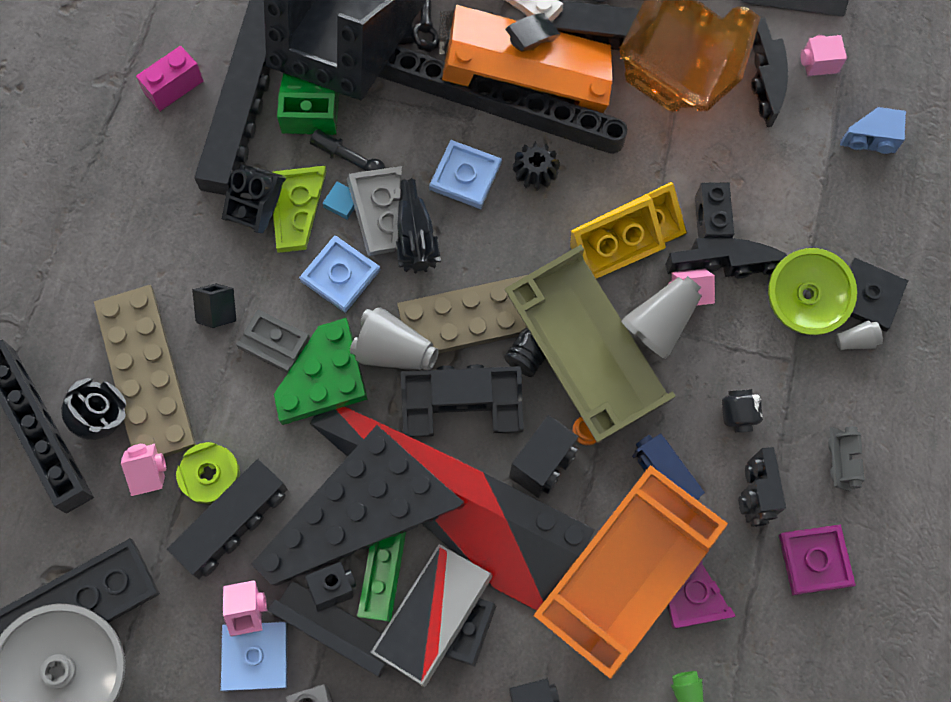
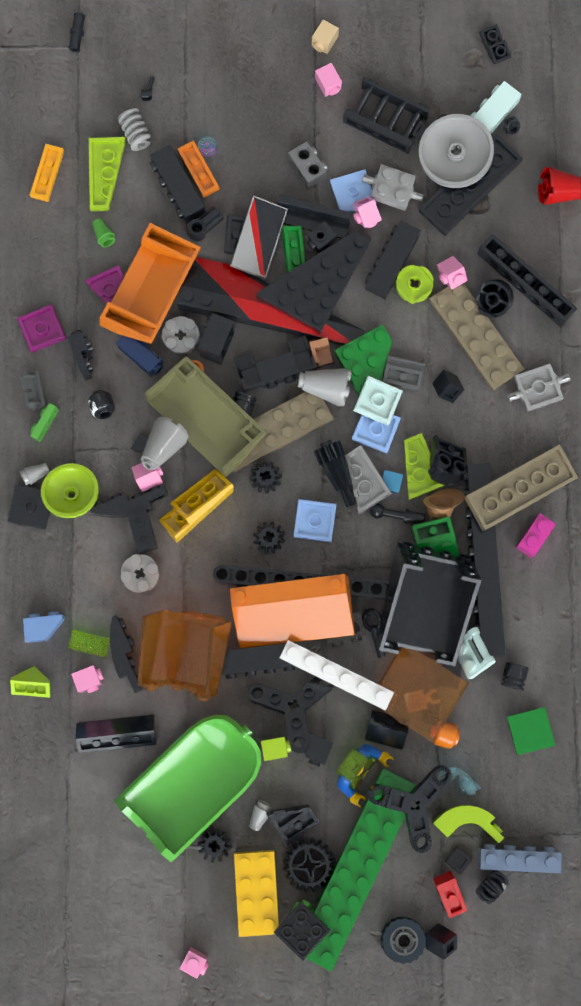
camera: 170 degrees right, 10 degrees up
(84, 270) = (538, 387): none -> light grey plate
(164, 135) = (520, 487): none -> dark tan plate
(186, 644) = (393, 187): none -> light grey plate
(277, 148) = (443, 502): none -> medium nougat piece
(324, 304) = (377, 400): none -> light aqua plate
(387, 405) = (321, 352): none -> nougat panel
(510, 665) = (206, 223): none -> black piece
(518, 237) = (267, 483): none -> black gear
(531, 31) = (293, 621): slope -> none
(582, 499) = (173, 327): none -> light grey plate
(690, 341) = (140, 443): none -> black tile
(728, 154) = (129, 576): none -> light grey plate
(812, 101) = (89, 643): none -> clear neon green plate
(843, 398) = (47, 416): none -> bright green plate
(900, 73) = (30, 683): none -> lime slope

